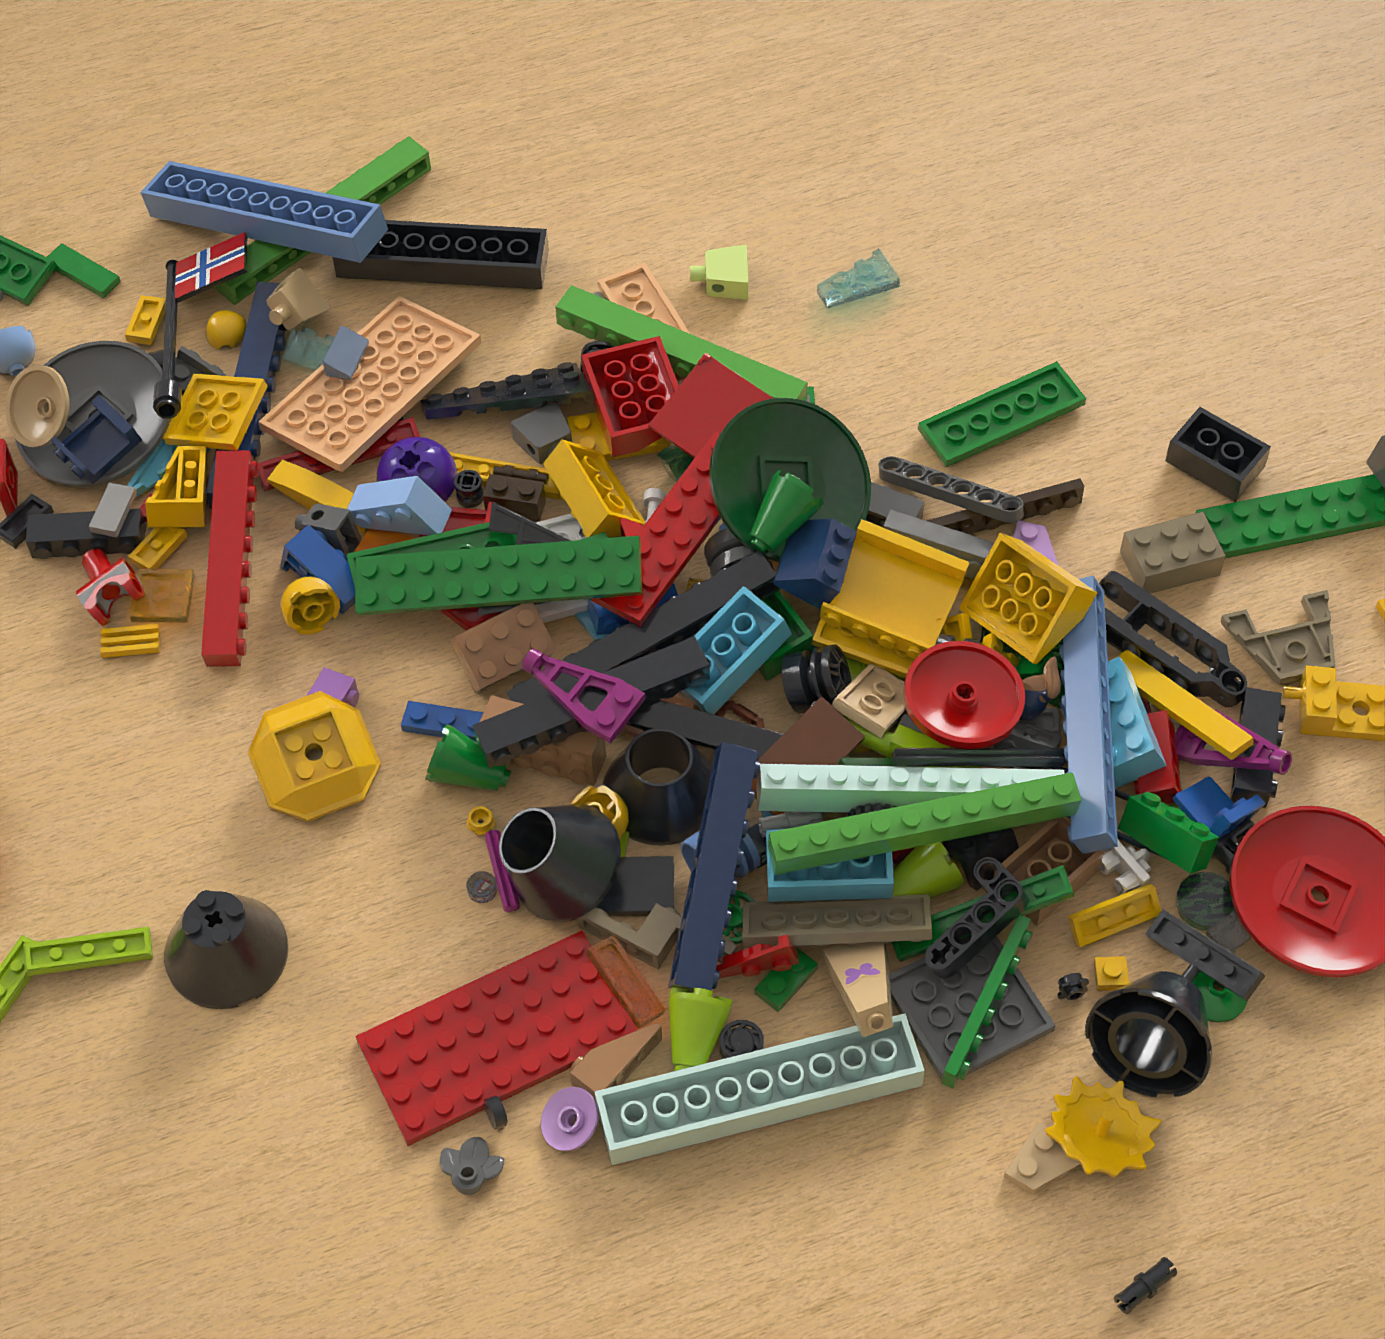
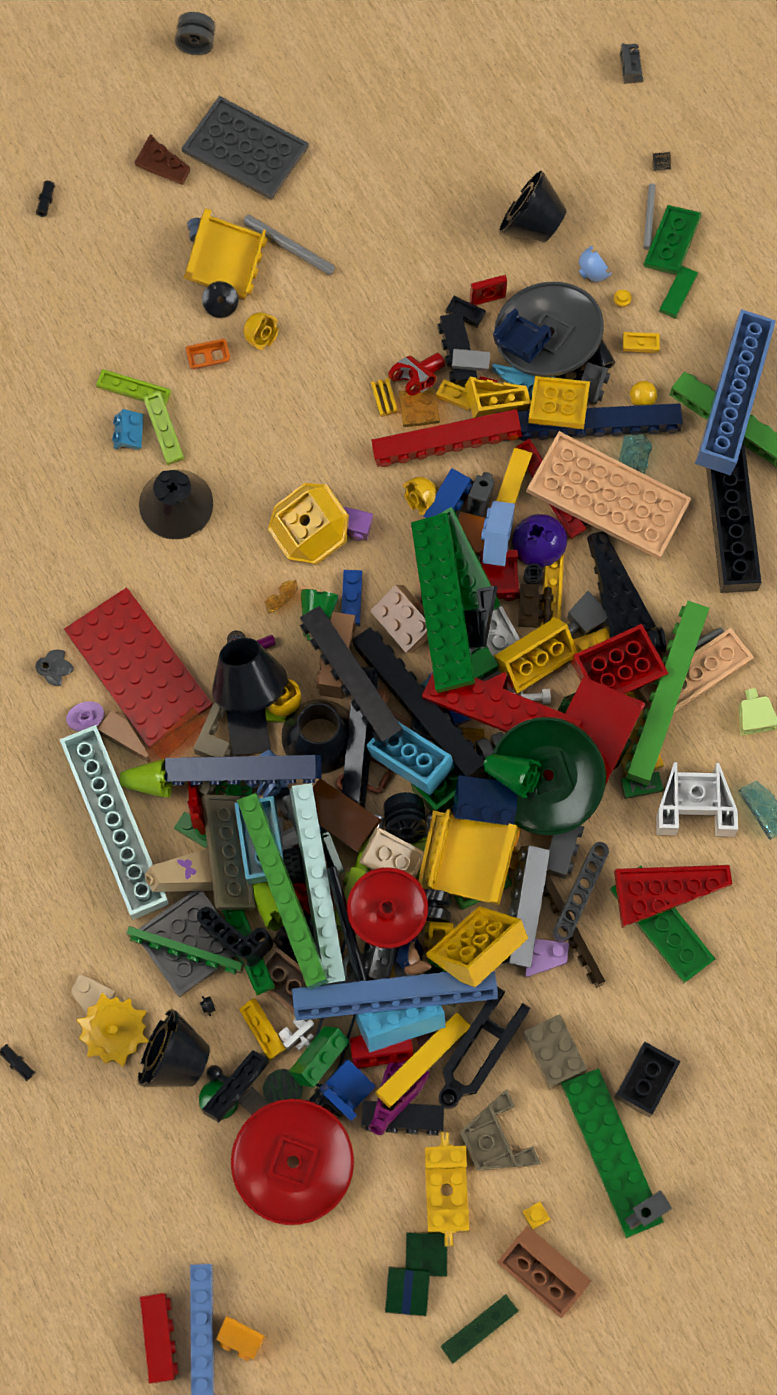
camera: 80 degrees right, 15 degrees up
(37, 406) = (539, 293): tan dish -> none
(69, 333) = (622, 298): none -> yellow plate
(74, 1008) = (128, 430): none -> dark azure bracket
(184, 281) = (679, 363): flag -> none
(296, 301) = (664, 431): tan torso -> none
(344, 354) = (625, 472): sand blue slope -> none
(424, 810) = (286, 592): none -> clear yellow slope
(477, 814) = (281, 626): yellow plate -> none
(495, 1112) = (86, 674): black tile -> none
(612, 712) = (340, 688): magenta plate -> none
(740, 1039) = (145, 808): black wheel -> none
(830, 345) = (697, 796): none -> white wedge
(958, 401) = (659, 889): none -> red wing
(958, 626) = (461, 907): yellow plate -> none
(1110, 972) = (223, 1030): yellow plate -> none

